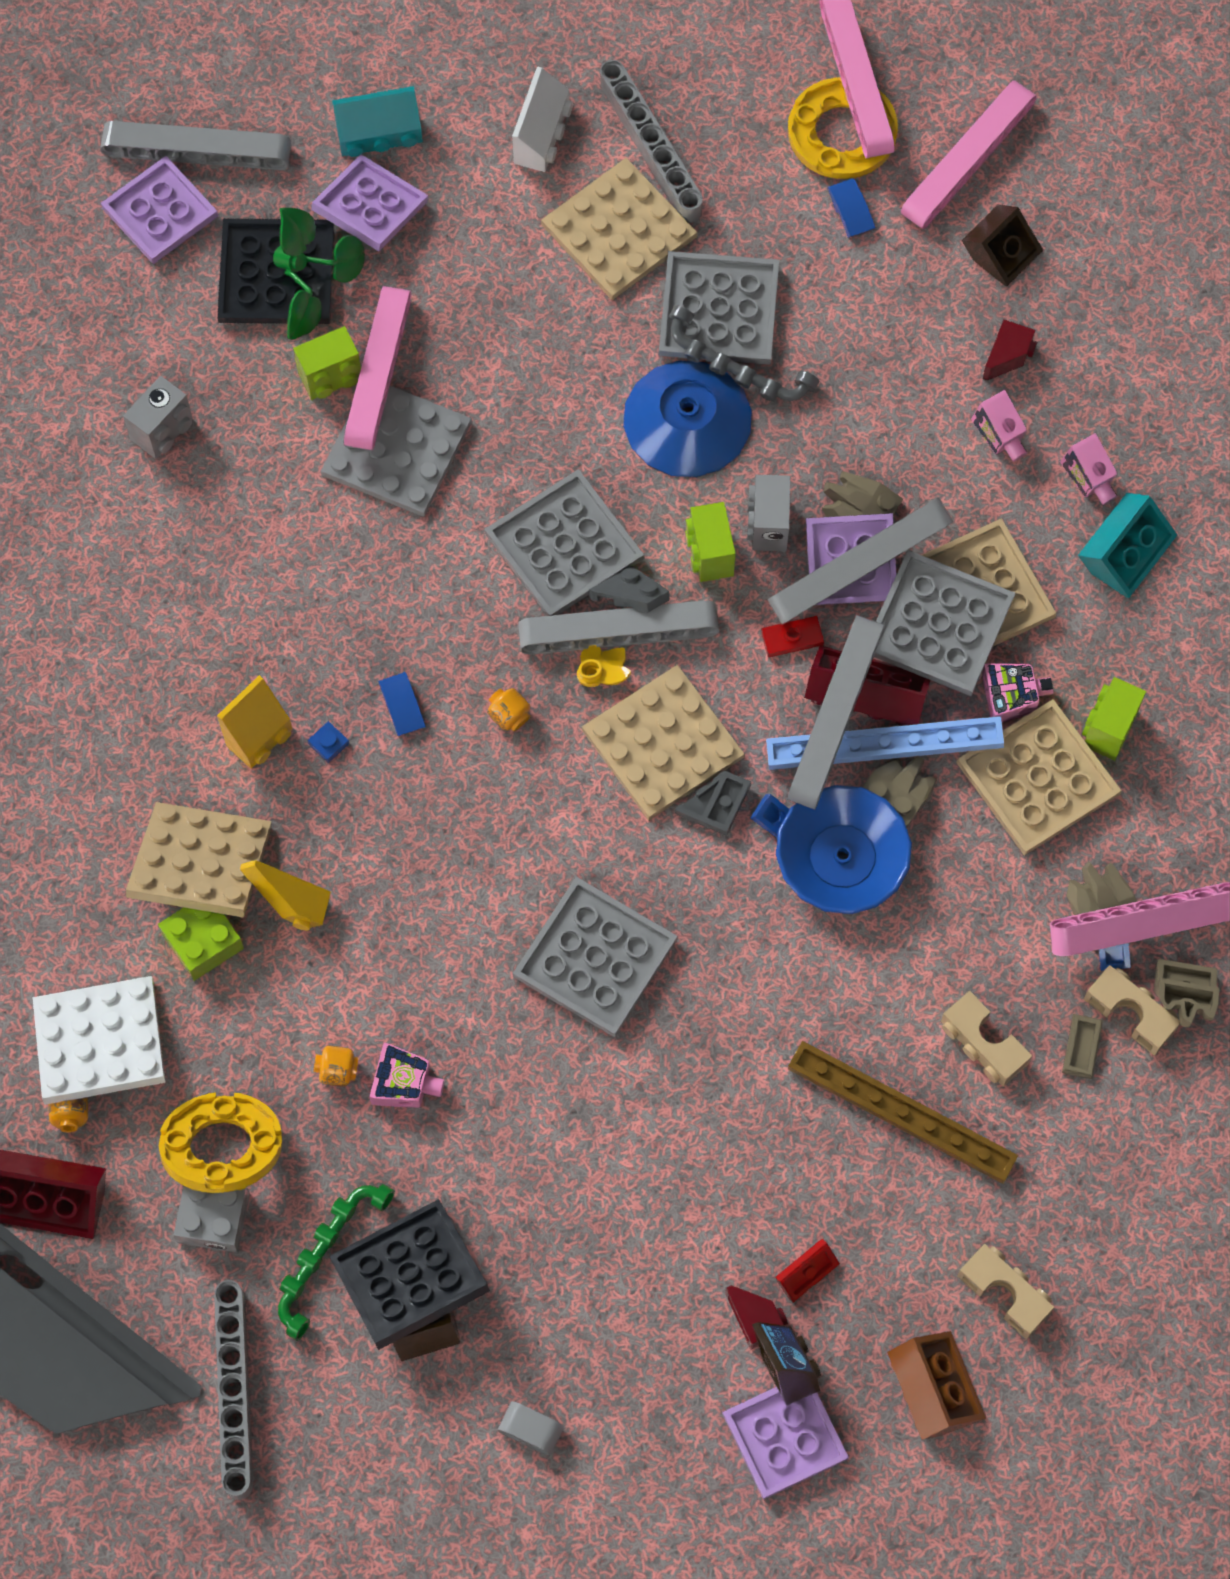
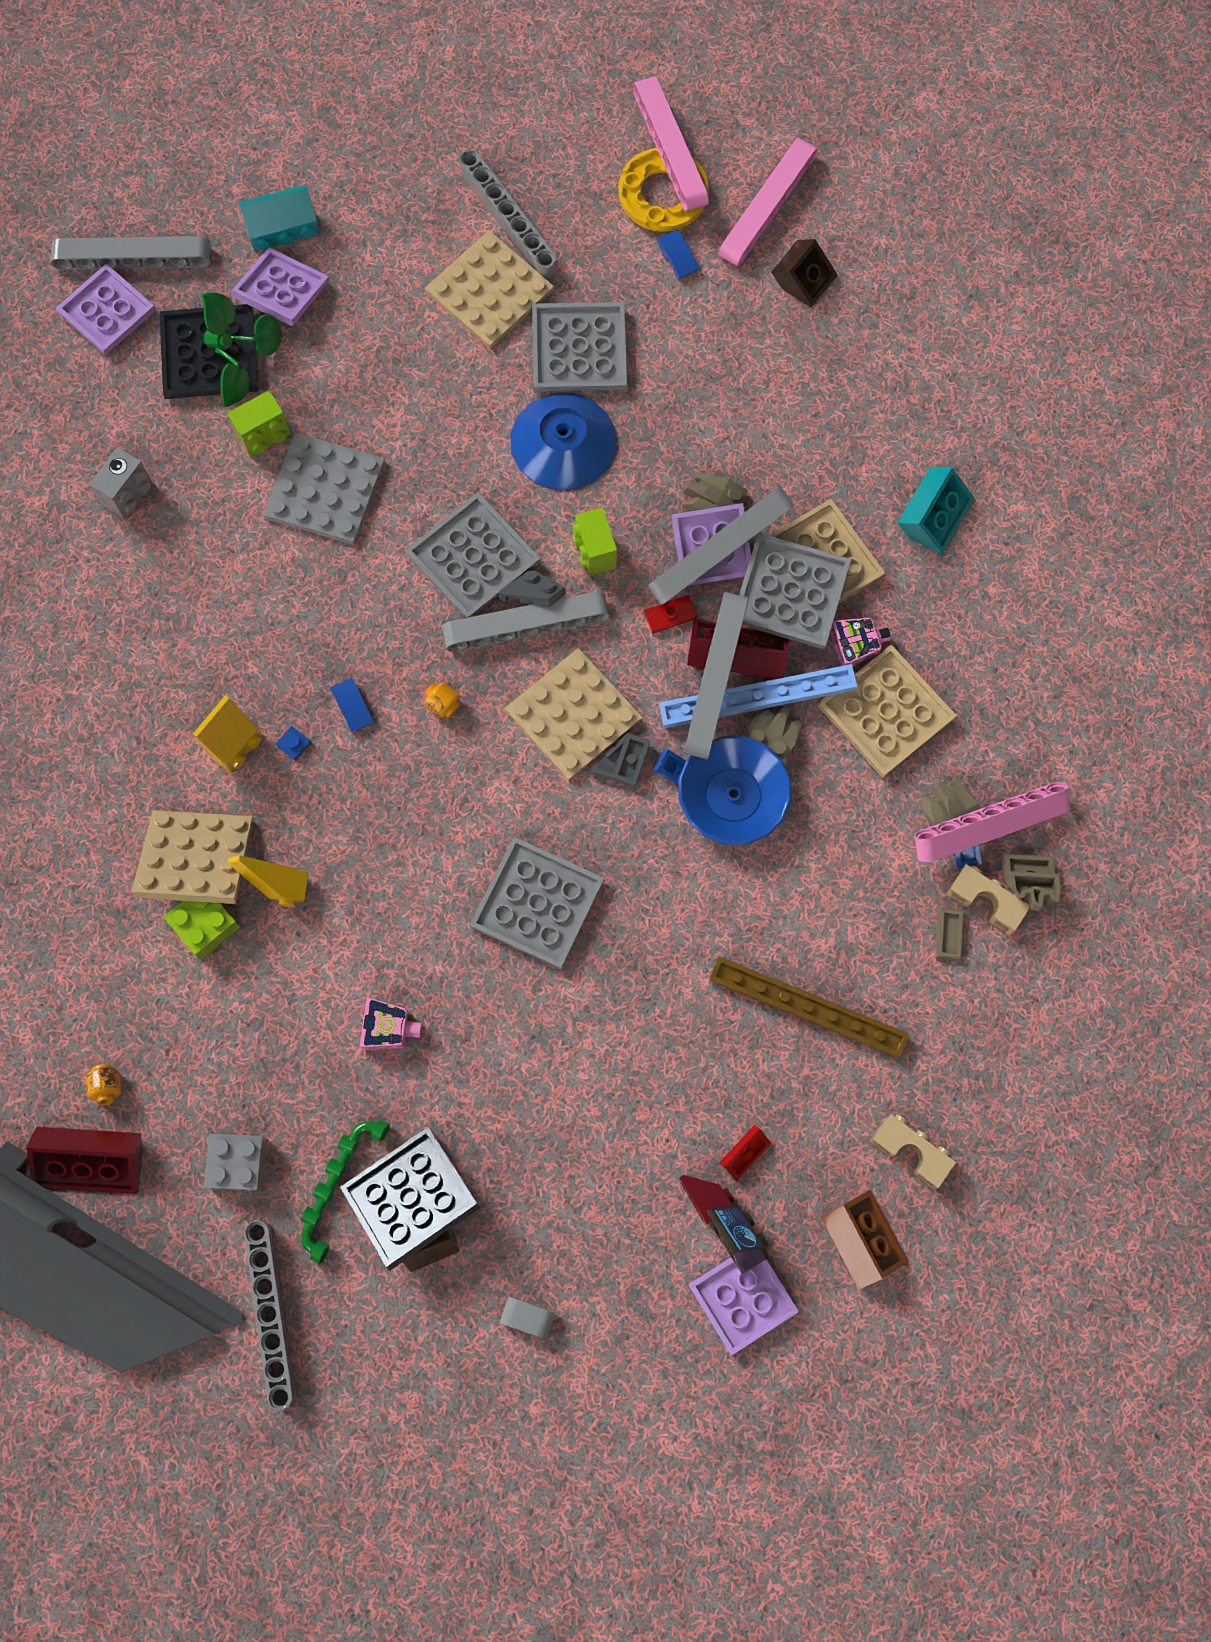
camera: 10 degrees left, 5 degrees up
(98, 1040) = (122, 1022): white plate -> none
(210, 1109) = (228, 1070): yellow plate -> none
(336, 1066) = (328, 1021): light orange head -> none
(377, 368) = (301, 424): bright pink beam -> none
(541, 121) = (415, 206): white slope -> none
(605, 666) = (518, 654): yellow plate -> none
(744, 375) = (606, 399): dark grey bar -> none
(769, 513) = (640, 512): light grey brick -> none
(1001, 425) = (821, 421): bright pink torso -> none
(1001, 1059) = (884, 954): tan arch -> none
(1010, 349) = (821, 358): dark red slope -> none
(1091, 469) = (899, 450): bright pink torso -> none
(1112, 717) = (943, 655): lime brick -> none

